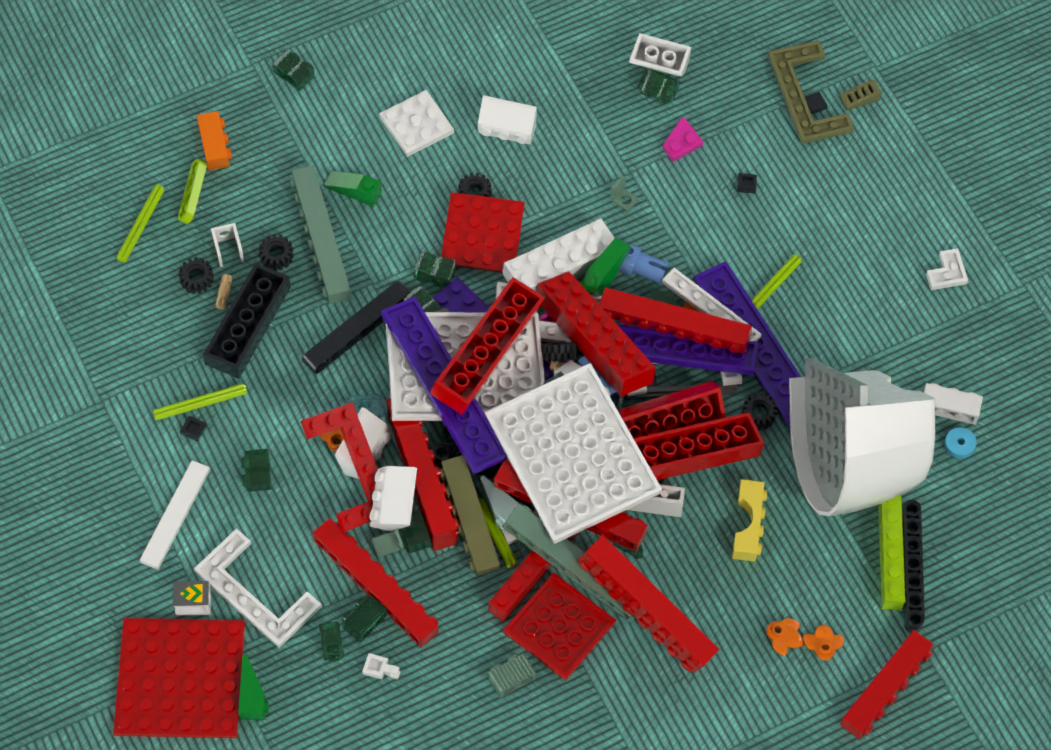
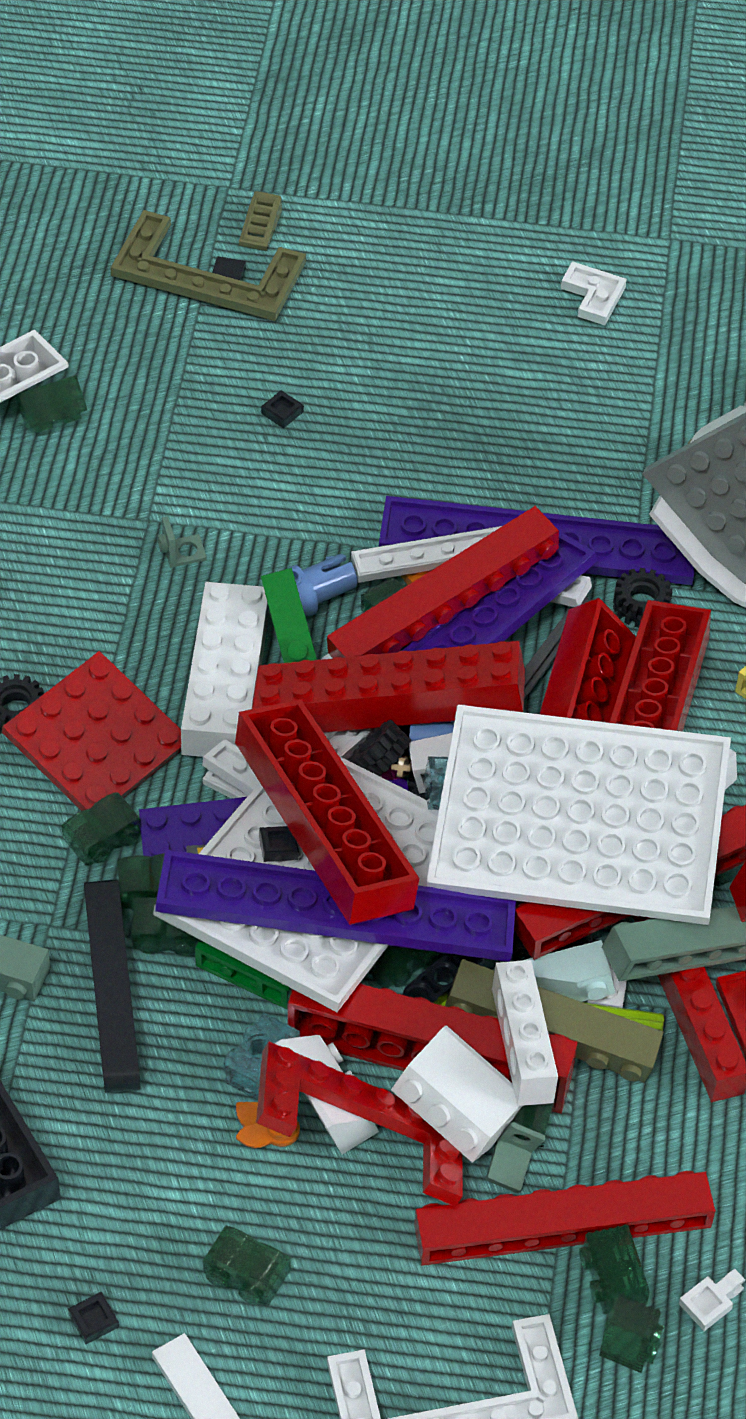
camera: 55 degrees left, 10 degrees down
(200, 401) = (54, 1280): lime axle -> none
(436, 501) = (524, 1033): none -> white brick
(459, 338) = (278, 844): none -> black tile
(682, 141) = (153, 435): dark pink wing -> none
(776, 280) = (457, 463): lime axle -> none

